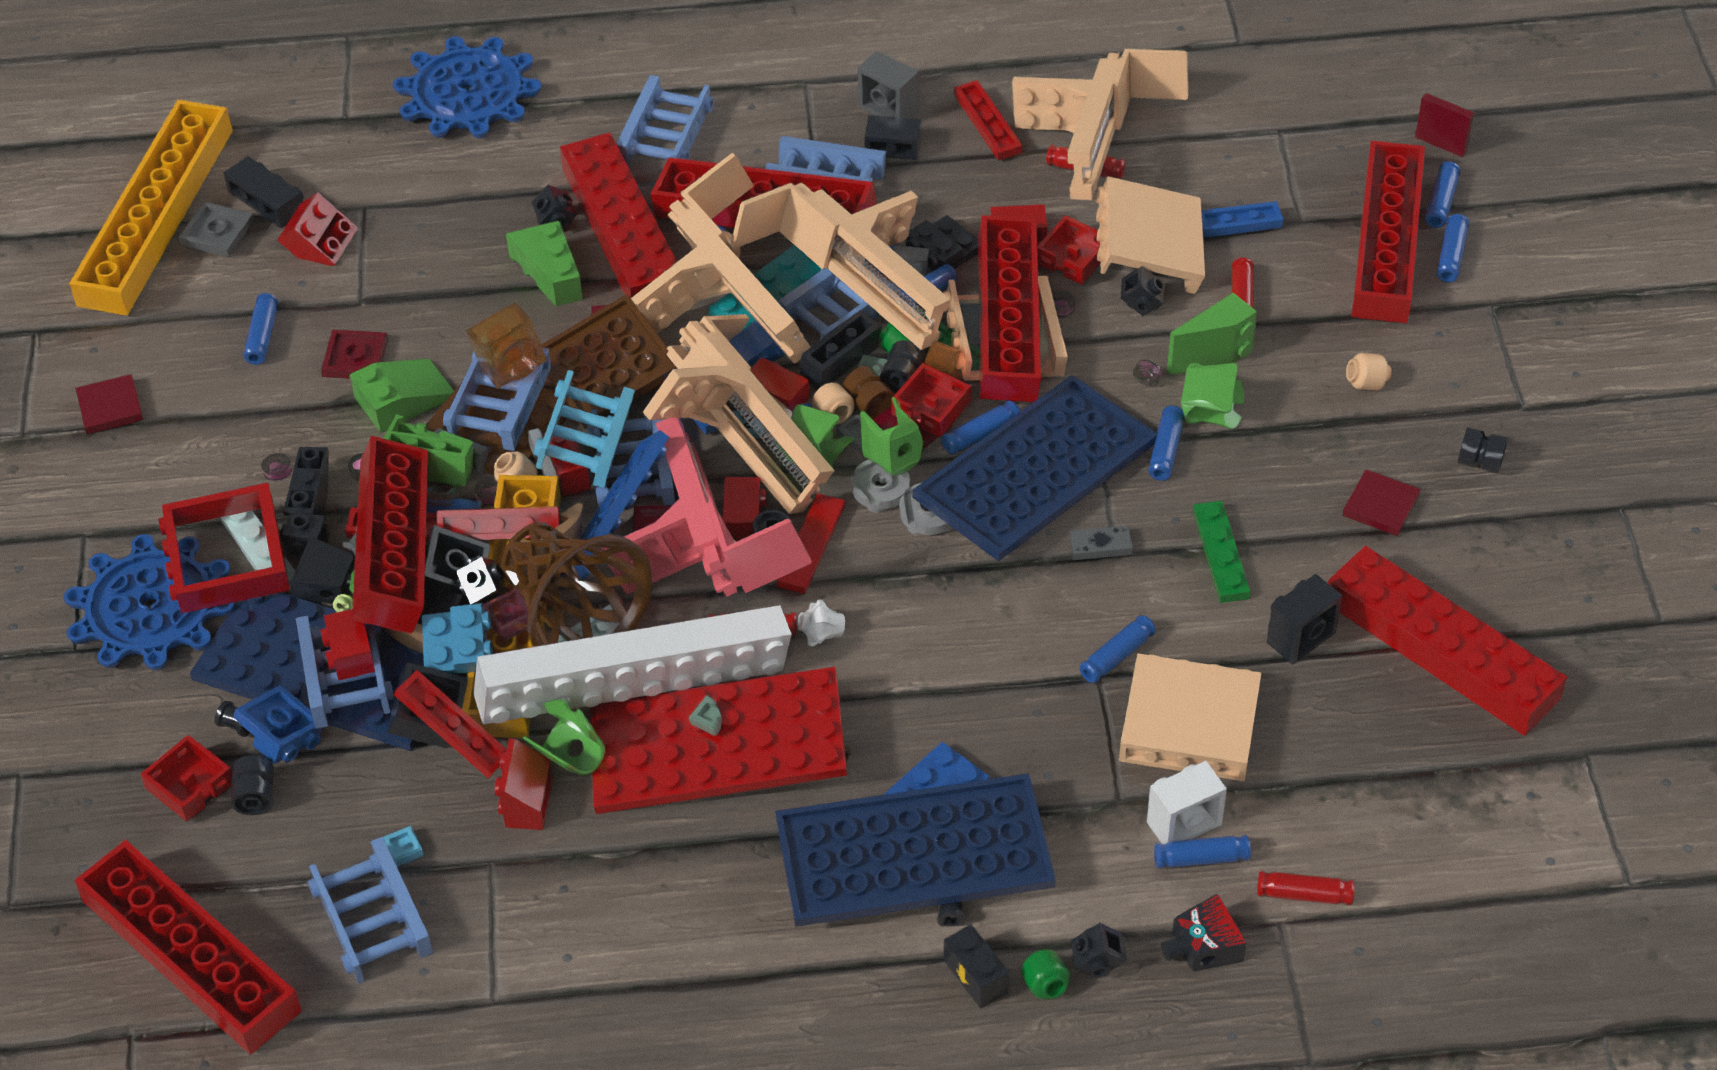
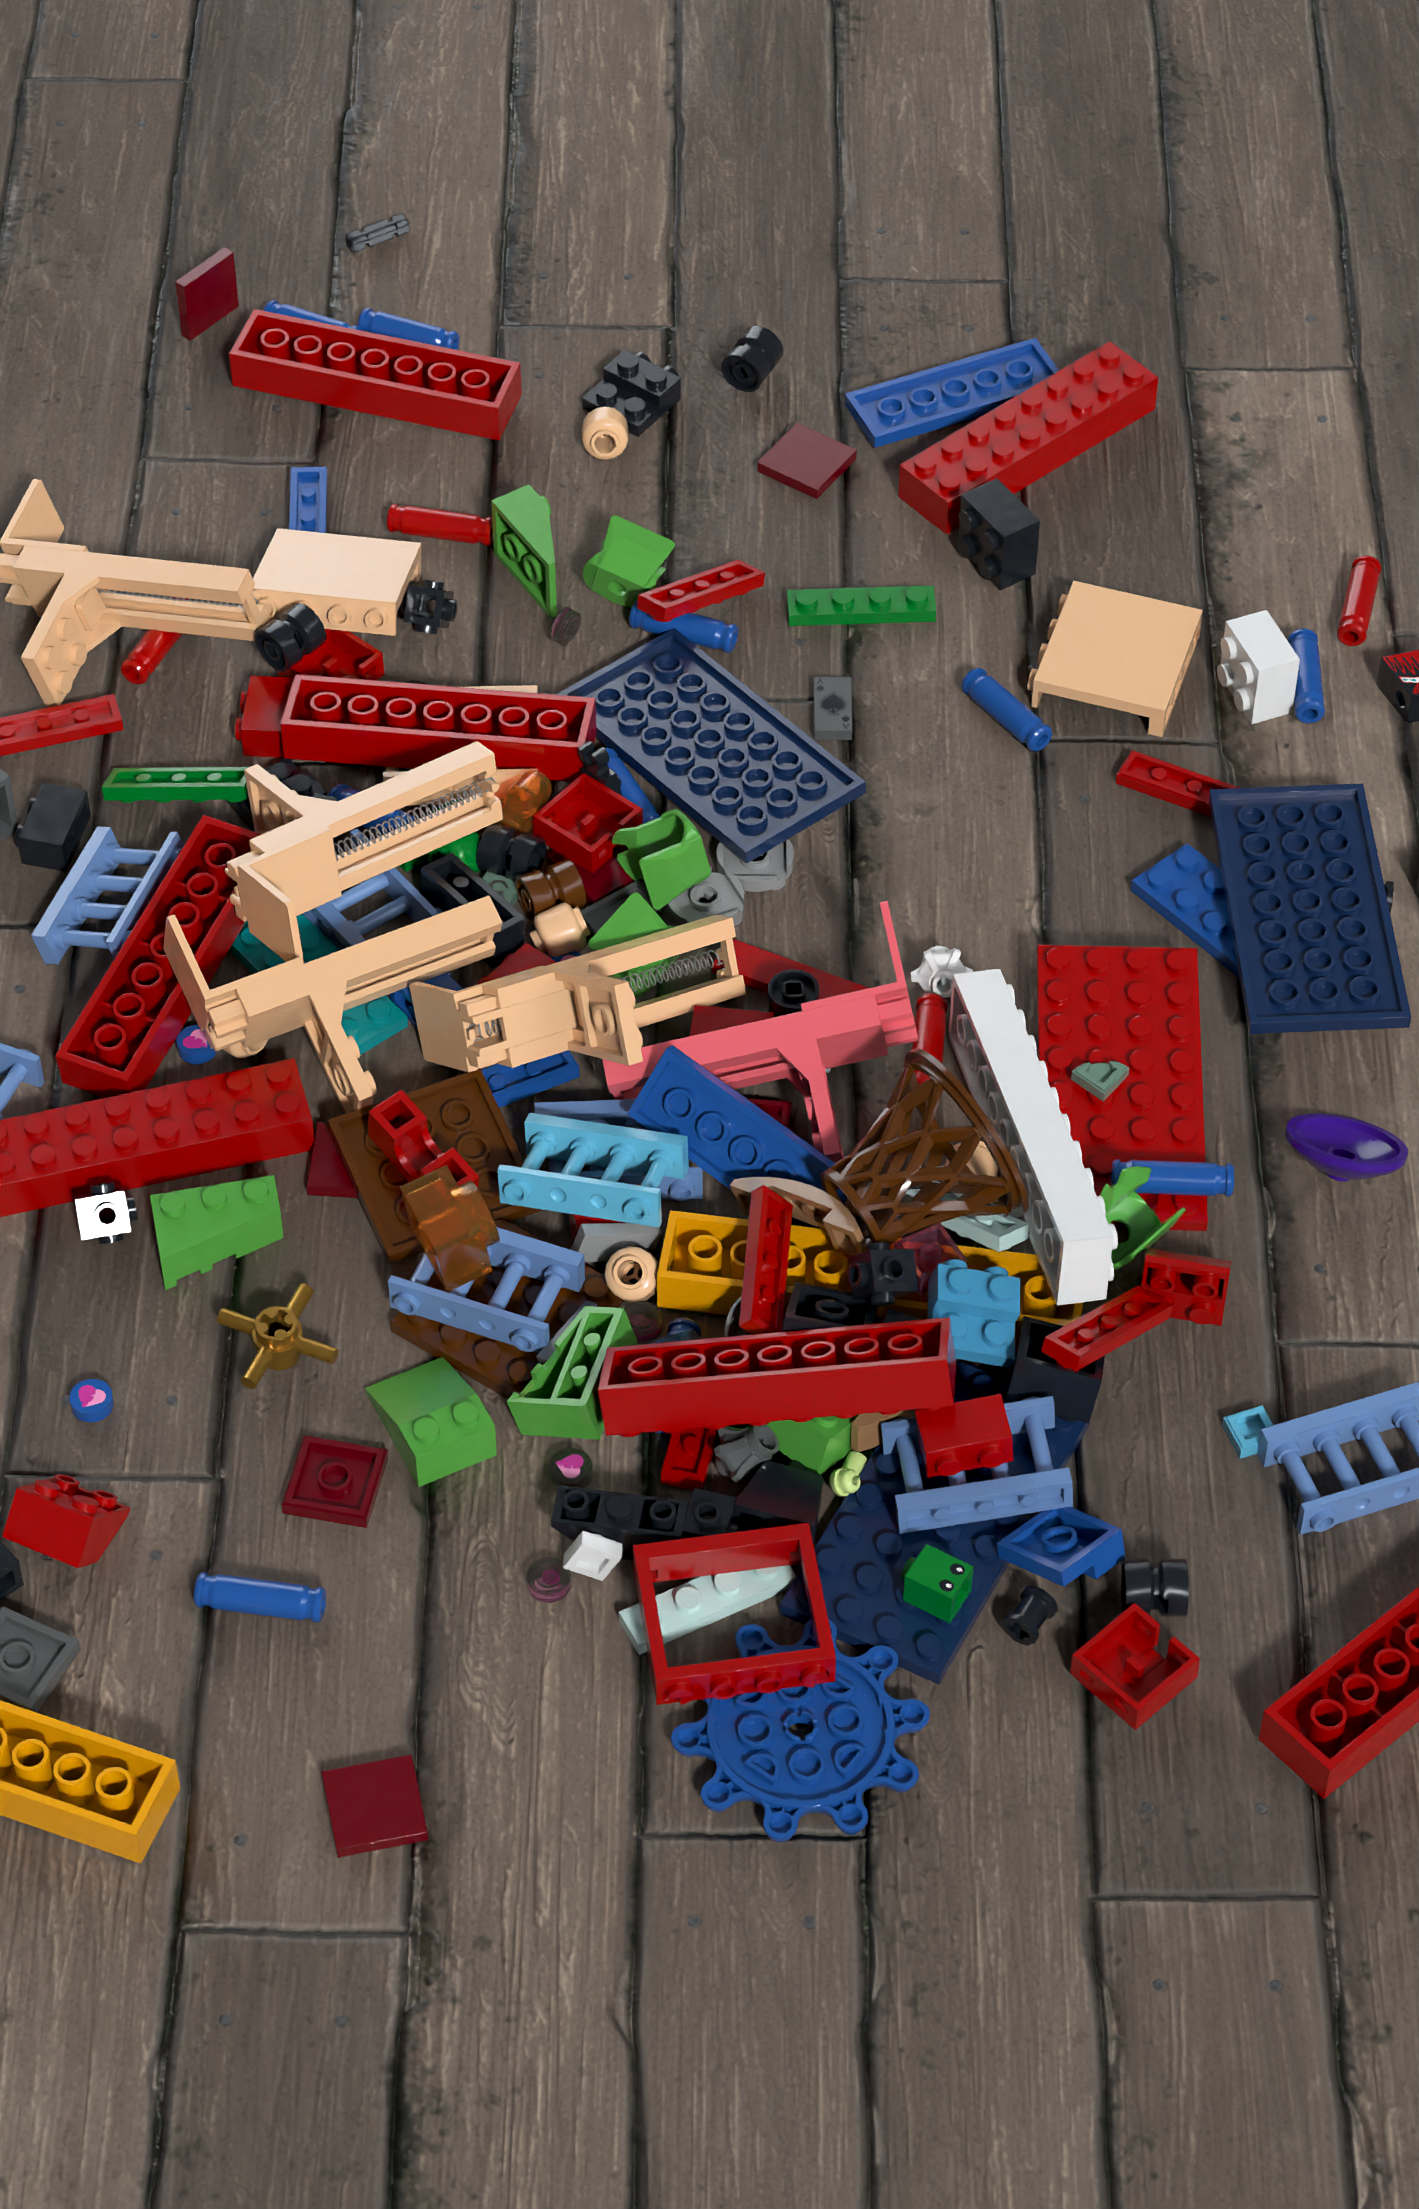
camera: 85 degrees left, 0 degrees up
(246, 653) = (937, 1582): none -> green brick
(282, 477) = (592, 1555): none -> white plate
(415, 233) = (91, 1400): none -> blue tile
(457, 304) = (277, 1337): none -> pearl gold bar
(606, 327) = (403, 1137): none -> red arch
(615, 769) = (1181, 1177): none -> blue axle
(677, 878) = (1345, 1146): none -> dark purple dish
(937, 188) = (176, 784): none -> green plate
(972, 400) = (597, 766): none -> black plate
(1059, 776) = (1168, 782): none -> red tile
(1071, 209) = (290, 637): none -> black wheel
(1193, 440) = (700, 590): none -> red plate
(1426, 387) = (636, 390): none -> black plate
(1490, 586) = (948, 392): none -> blue plate
(1568, 217) = (377, 233): none -> axle

